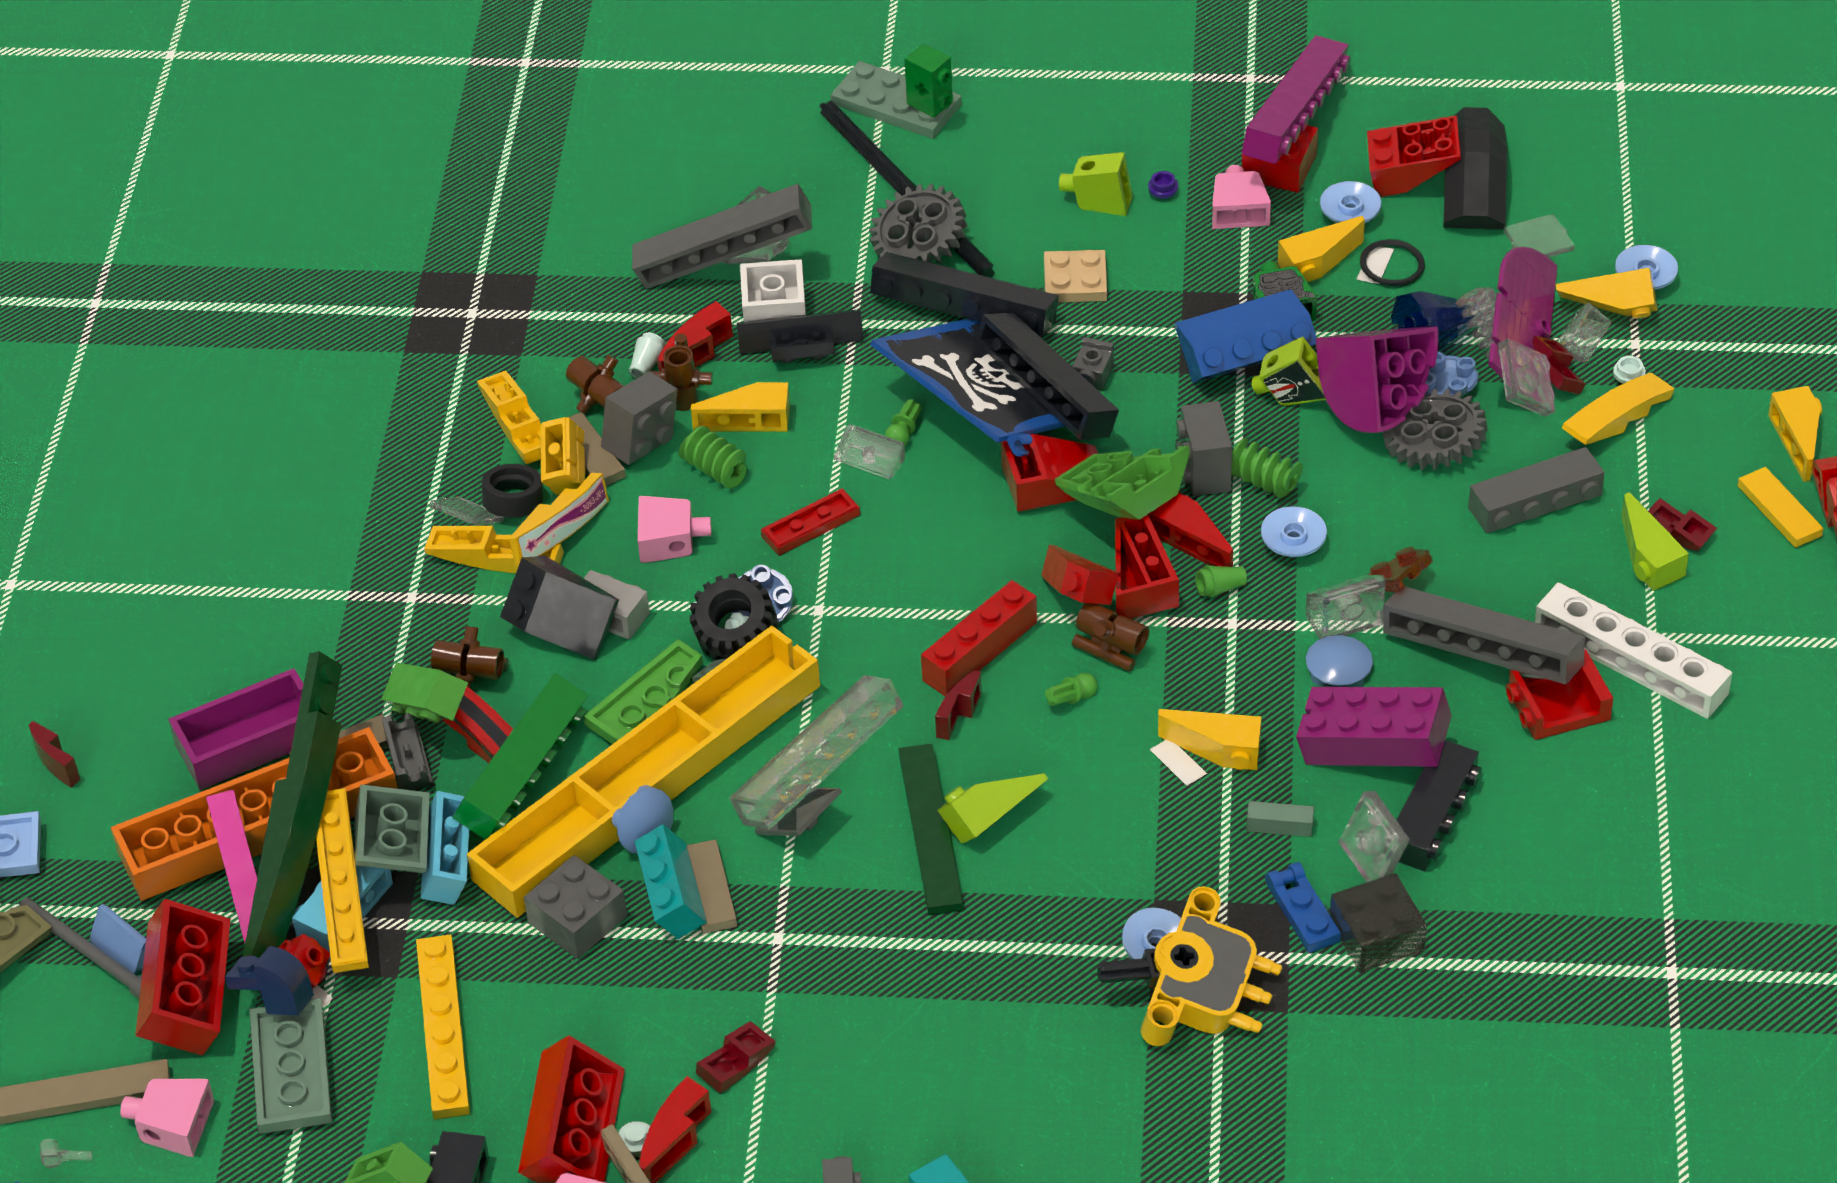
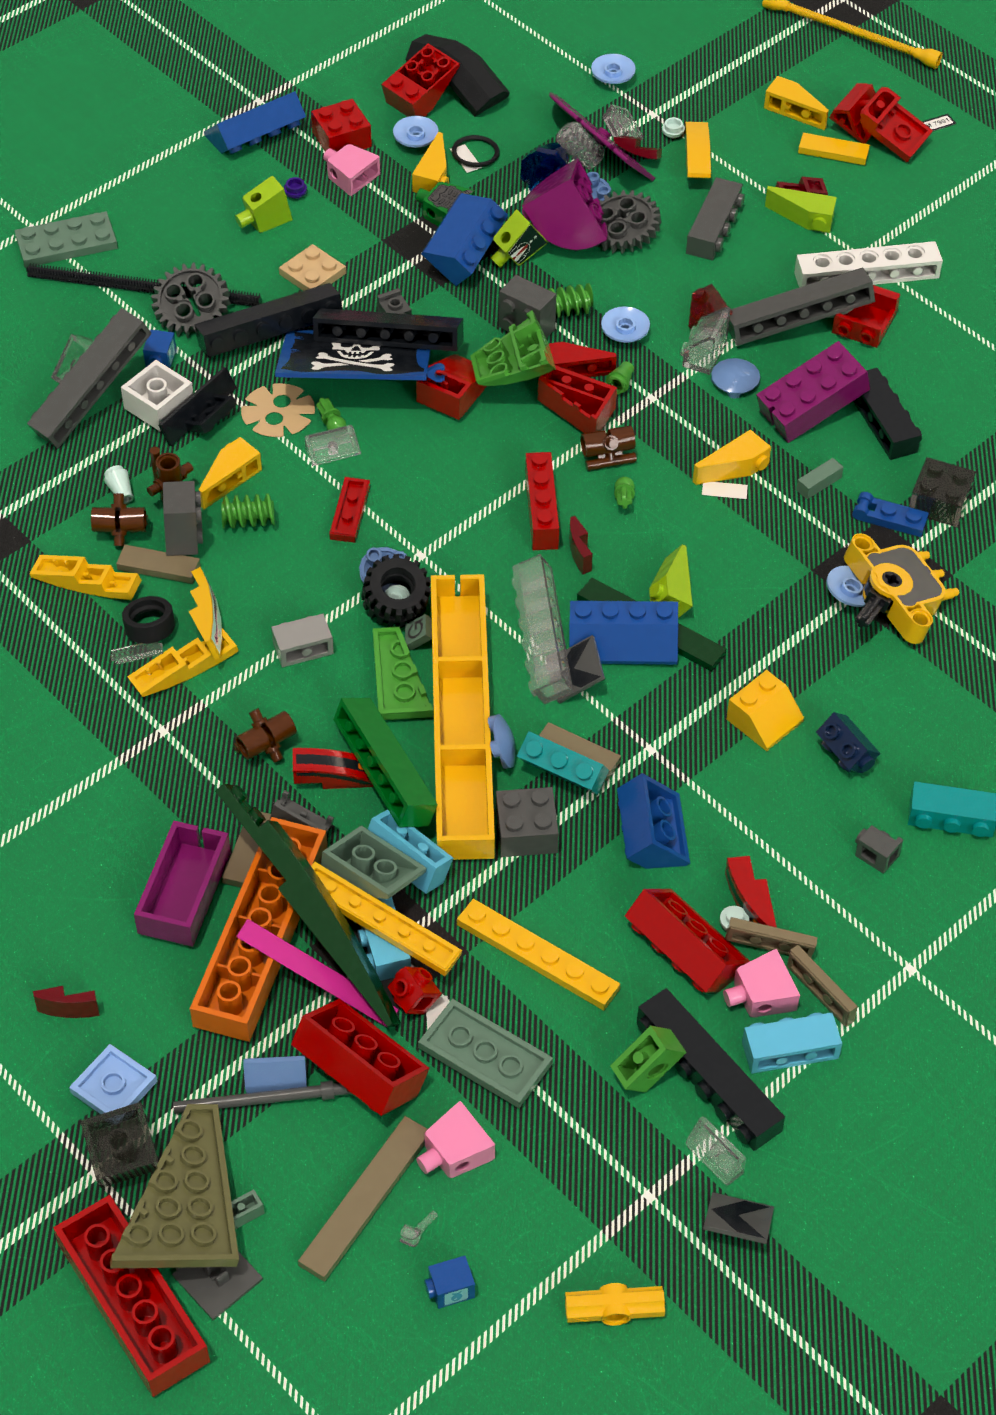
camera: 50 degrees left, 5 degrees up
(279, 978) = (424, 1004): dark blue brick -> none
(424, 692) = (279, 770): bright green brick -> none
(559, 606) = (285, 660): slope -> none
(562, 454) = (159, 574): yellow brick -> none
(668, 528) = (274, 572): bright pink torso -> none
(679, 999) = (652, 824): none -> blue slope
(703, 333) = (139, 444): red slope -> none
(736, 1058) = (722, 830): dark red slope -> none
(835, 257) = (160, 347): none -> blue brick
(875, 404) = (291, 414): none -> tan piece
(885, 813) = (627, 630): none -> blue slope
(914, 984) = (764, 710): none -> yellow slope
(928, 80) = (94, 208): green brick -> none
(943, 1073) = (848, 743): none -> dark blue brick
(1078, 577) = (553, 426): red slope -> none
(1203, 96) = (256, 123): none -> blue slope
(1296, 99) = (326, 88): magenta brick -> none
(1373, 838) = (891, 450): clear plate -> none
(1526, 377) = (647, 164): clear plate -> none
(1540, 234) = (533, 90): clear piece -> none
(1619, 293) = (620, 90): yellow slope -> none

